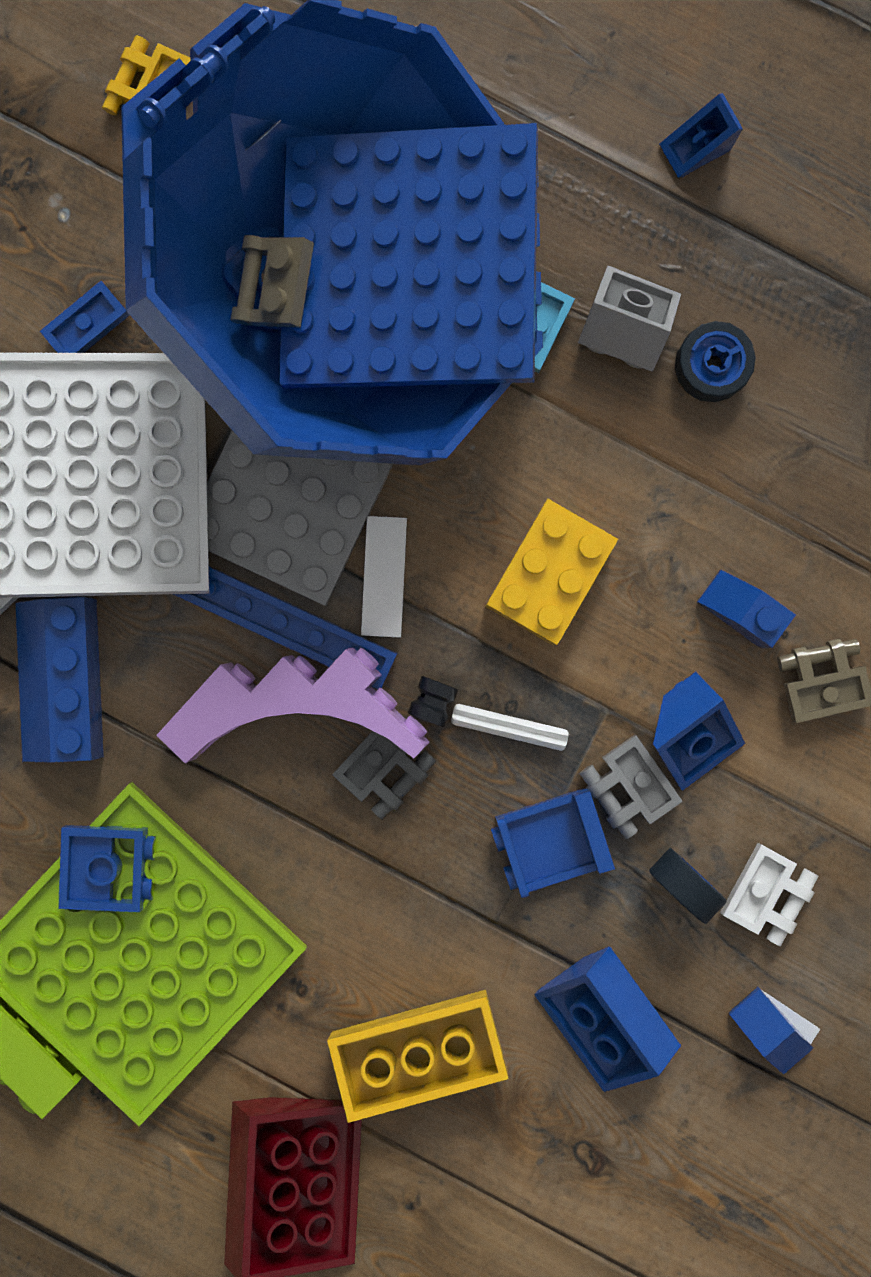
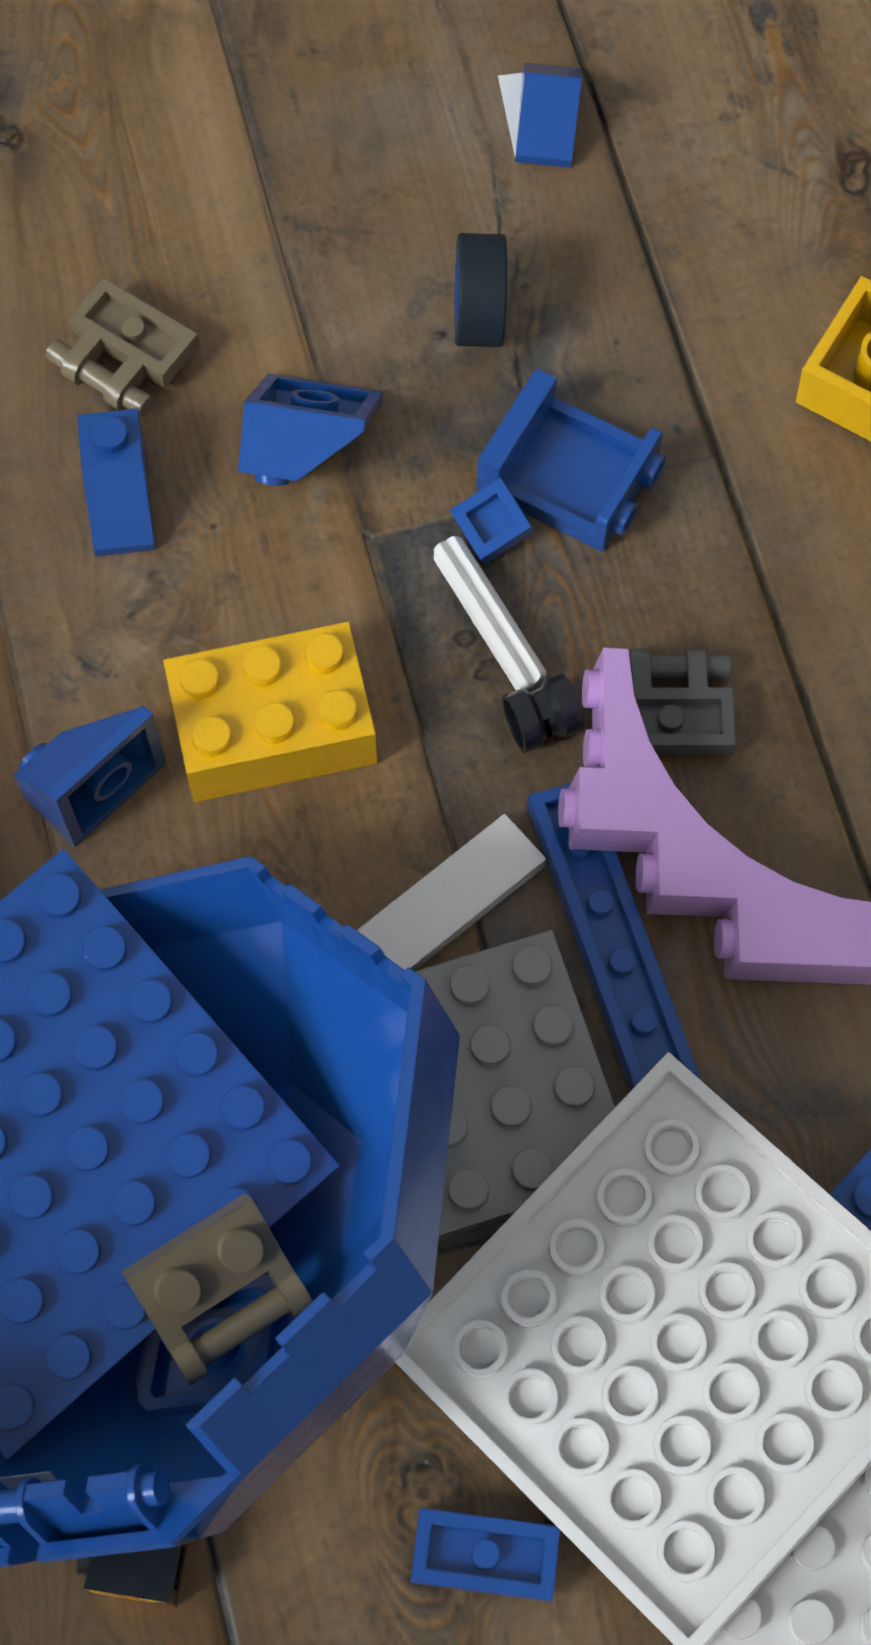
camera: 140 degrees left, 20 degrees down
(555, 773) = (492, 520): none -> blue plate
(598, 453) = (91, 771): none -> blue slope
(608, 1021) = (699, 256): blue slope -> none
(642, 781) = (412, 434): light grey plate -> none
(759, 889) = (408, 232): white plate -> none

